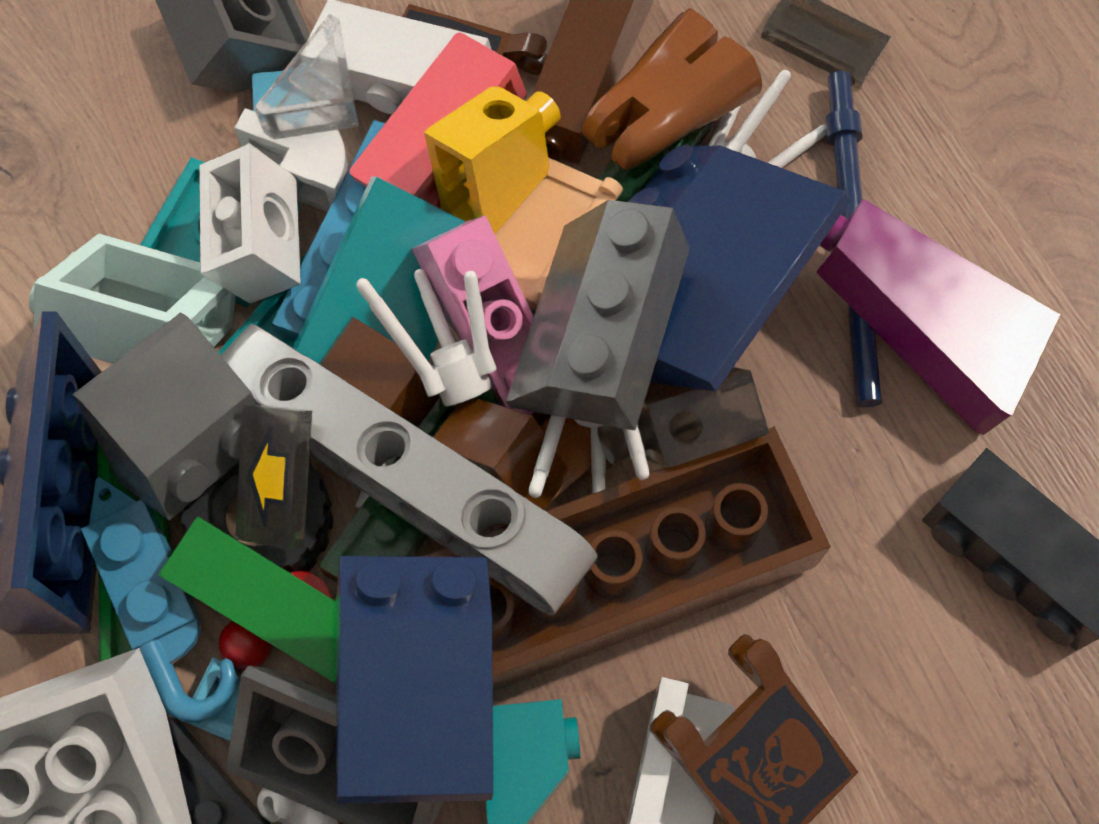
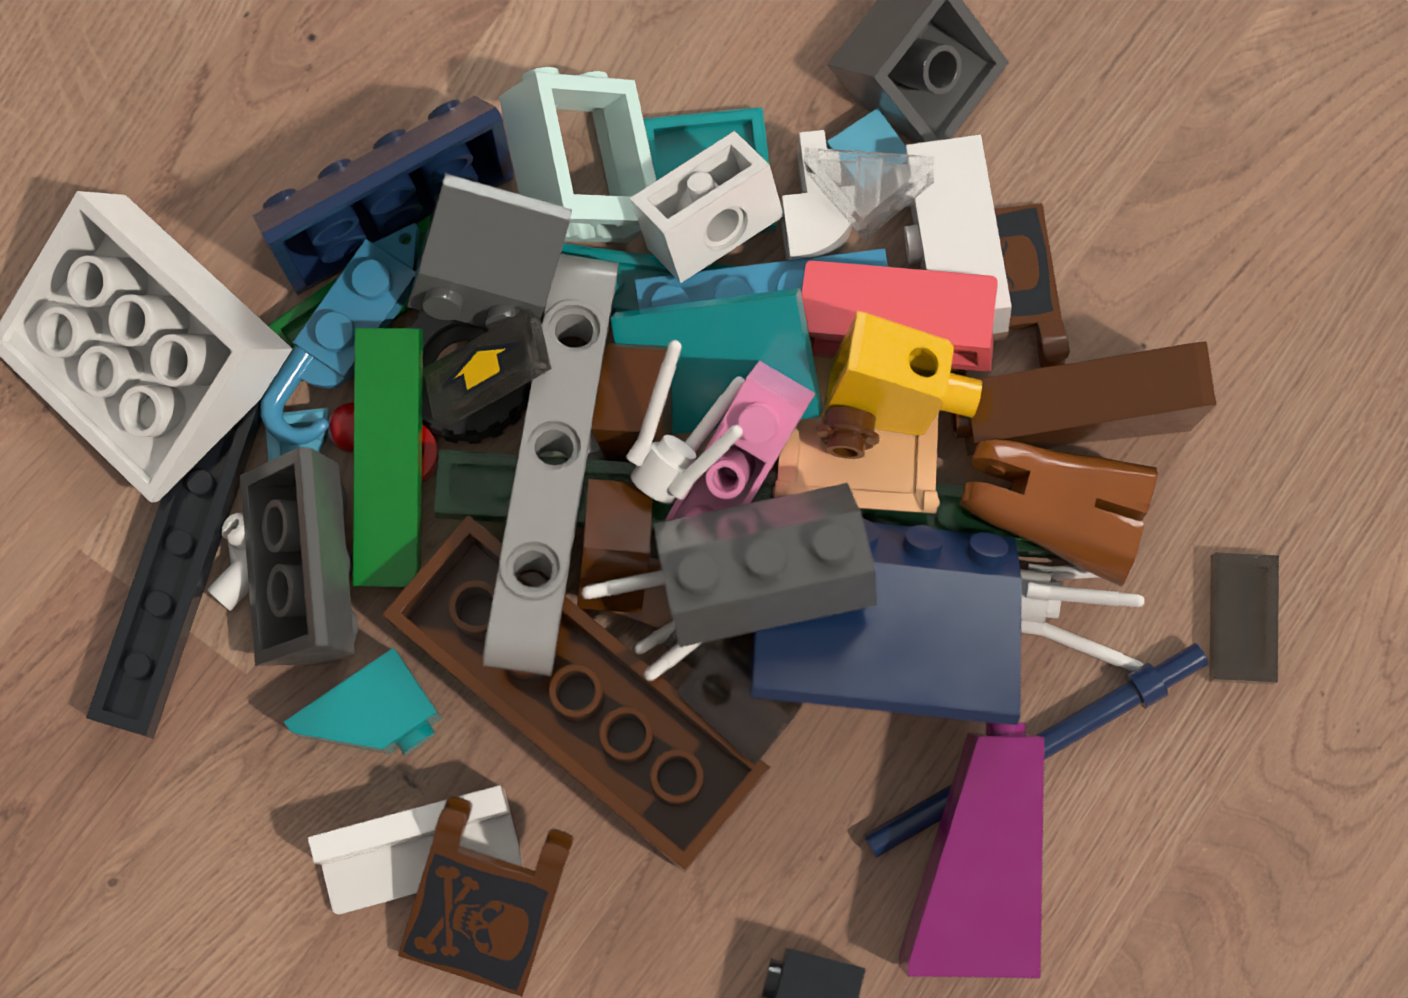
camera: 60 degrees right, 10 degrees up
(413, 680) = (365, 582): dark blue slope -> none
(514, 217) = (848, 432): none -> reddish brown plate

